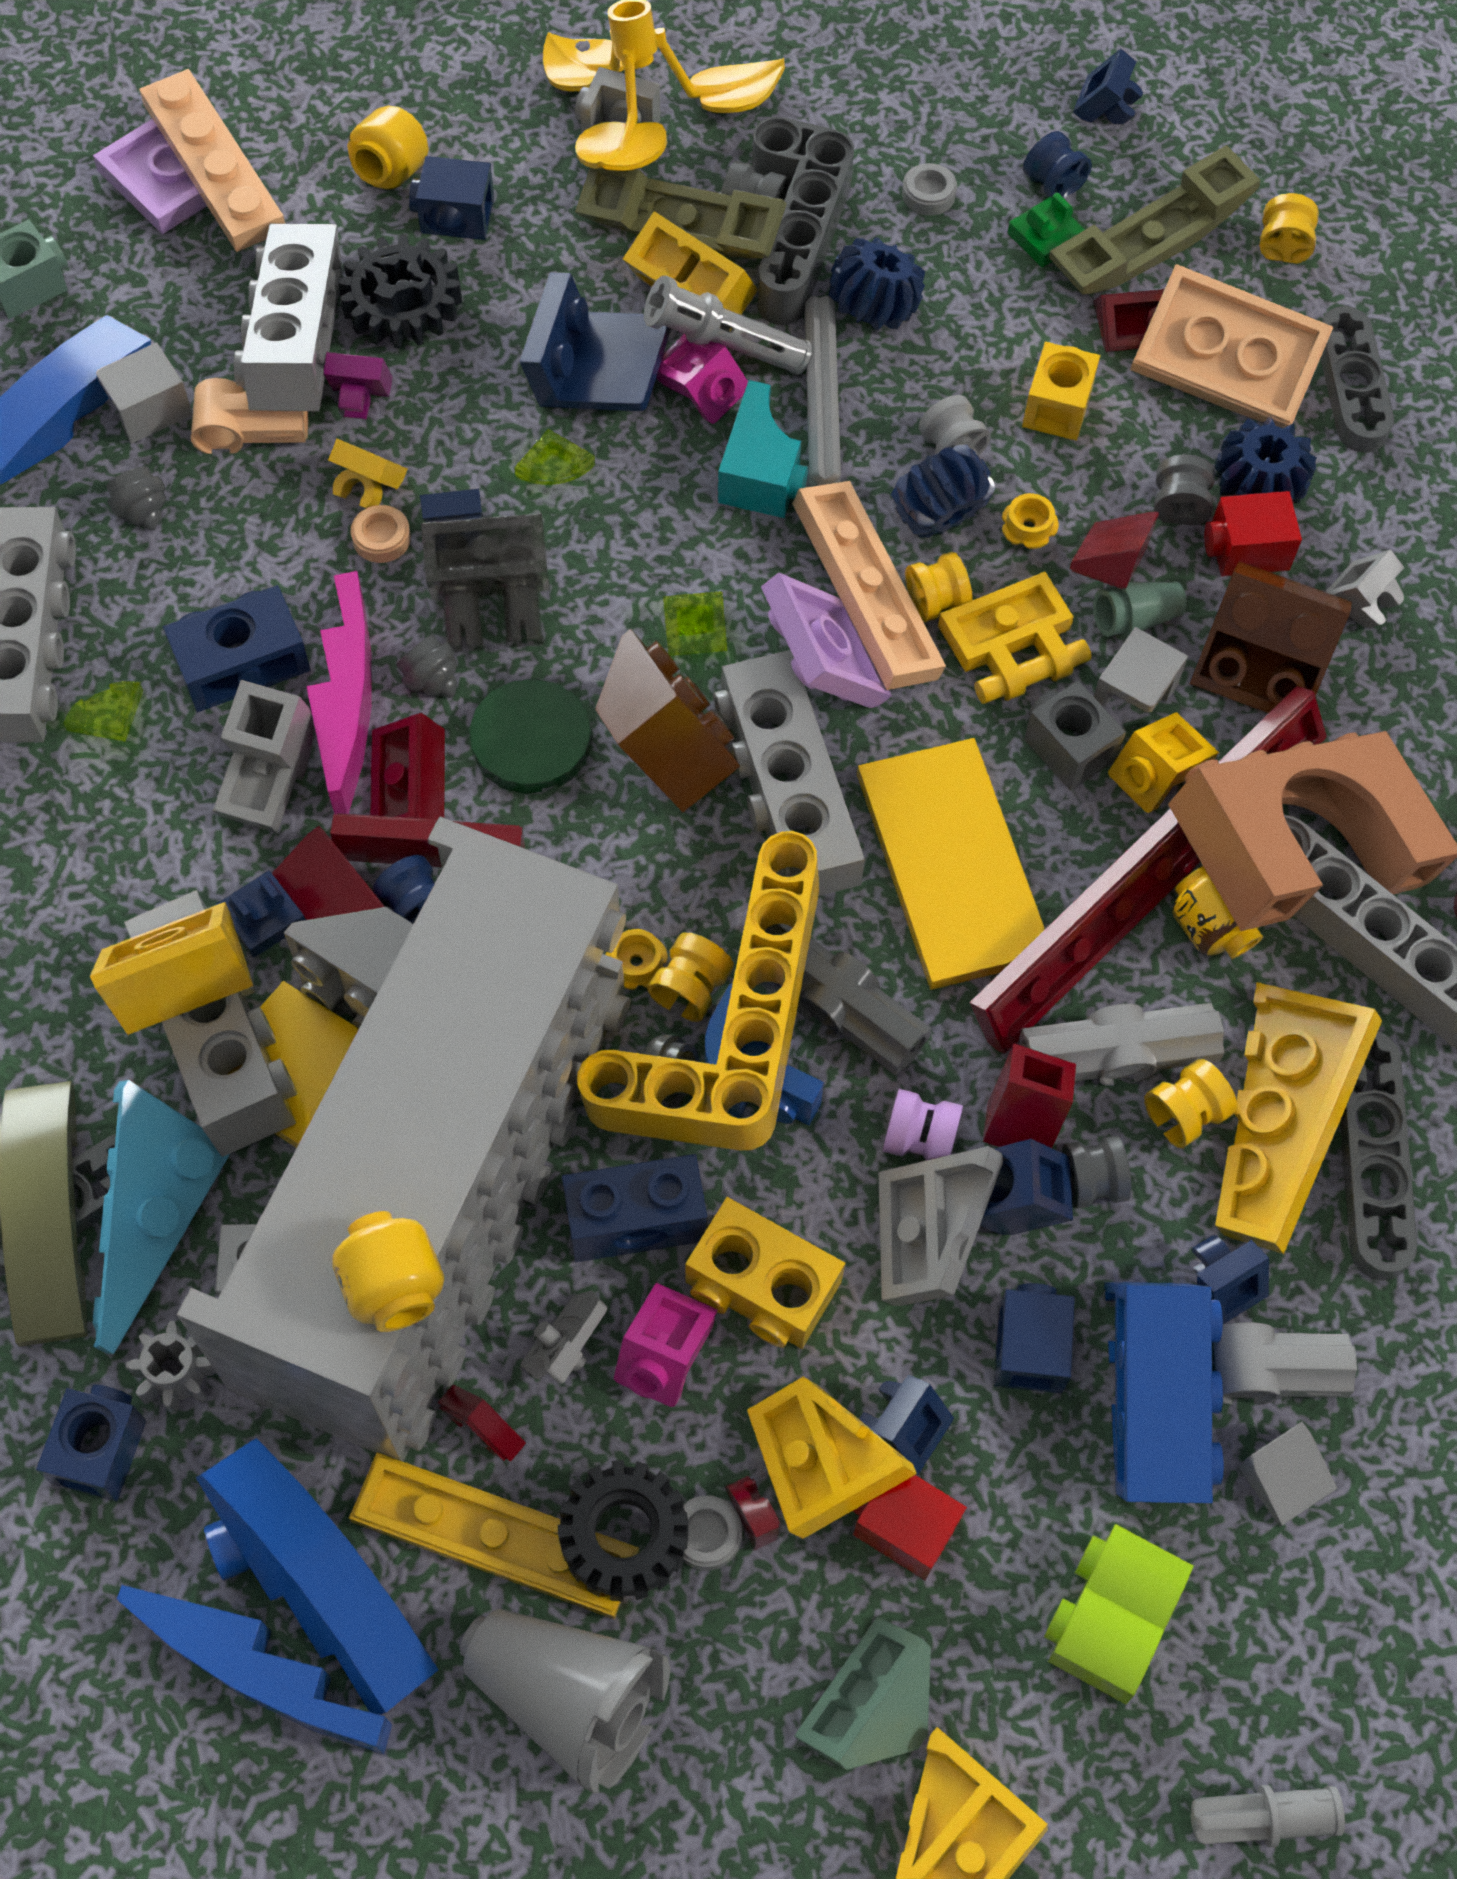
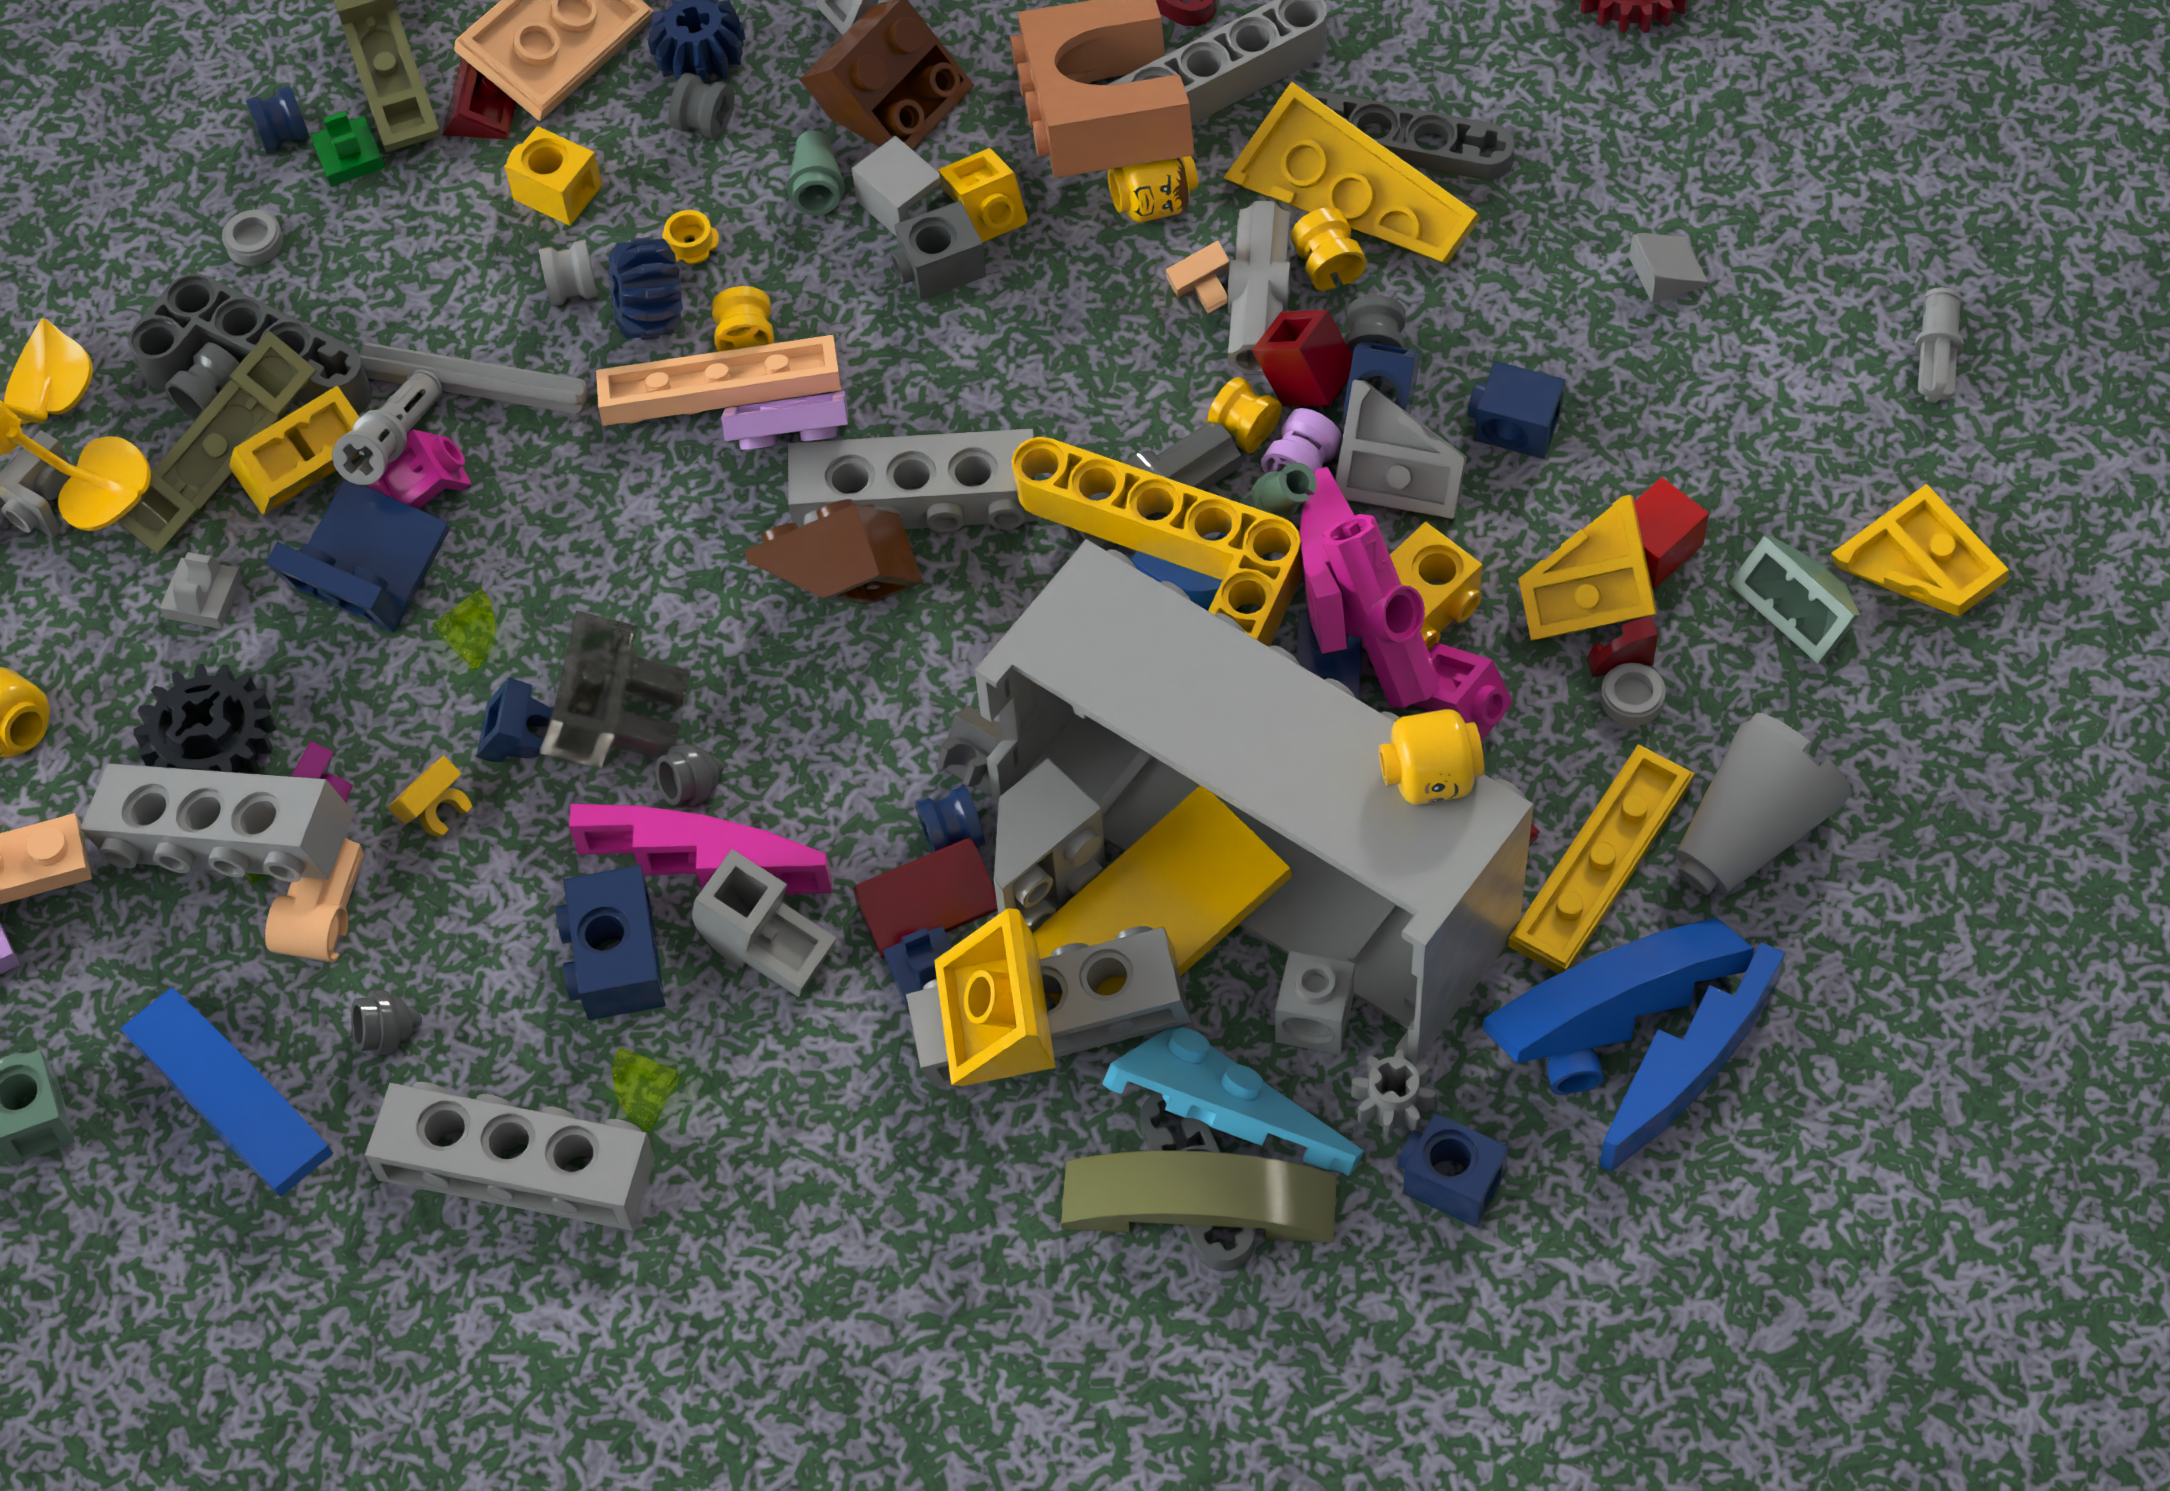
camera: 70 degrees left, 5 degrees down
(145, 392) = (249, 987): light grey panel -> none
(380, 533) = (505, 800): light nougat tile -> none
(394, 838) = (898, 793): dark red tile -> none
(408, 769) = (813, 817): dark red slope -> none
(453, 197) = (99, 658): dark blue brick -> none
(530, 735) = (793, 701): dark green tile -> none
(544, 252) = (201, 591): none -> light grey tile
(615, 1487) = (1633, 707): black tyre -> none
(682, 1223) = (1381, 610): none -> dark pink piece
(694, 623) = (706, 538): clear neon green slope -> none
(760, 461) = (543, 441): teal arch -> none
(770, 1161) = (1321, 585): none -> dark pink slope
(839, 1107) = (1283, 490): none -> sand green axle
(876, 283) = (369, 296): dark blue gear -> none
(912, 1419) = (1559, 510): dark blue tile -> none
(951, 861) = (1037, 378): yellow tile -> none
(953, 1061) = (1245, 413): none -> yellow wheel
(1007, 622) = (798, 282): yellow plate -> none
(1109, 91) = (195, 56): dark blue tile -> none
(1113, 982) = (1200, 274): none -> light nougat tile
(1115, 549) = (754, 165): dark red slope -> none
(1119, 1613) = (1763, 402): lime brick -> none
(1120, 896) = (1097, 228): dark red tile -> none
(1165, 1391) = (1581, 320): blue wedge -> none
(1235, 1277) = (1492, 261): dark blue tile -> none
(1254, 531) = (769, 63): red brick -> none
(1278, 1365) = (1575, 251): light grey piece -> none

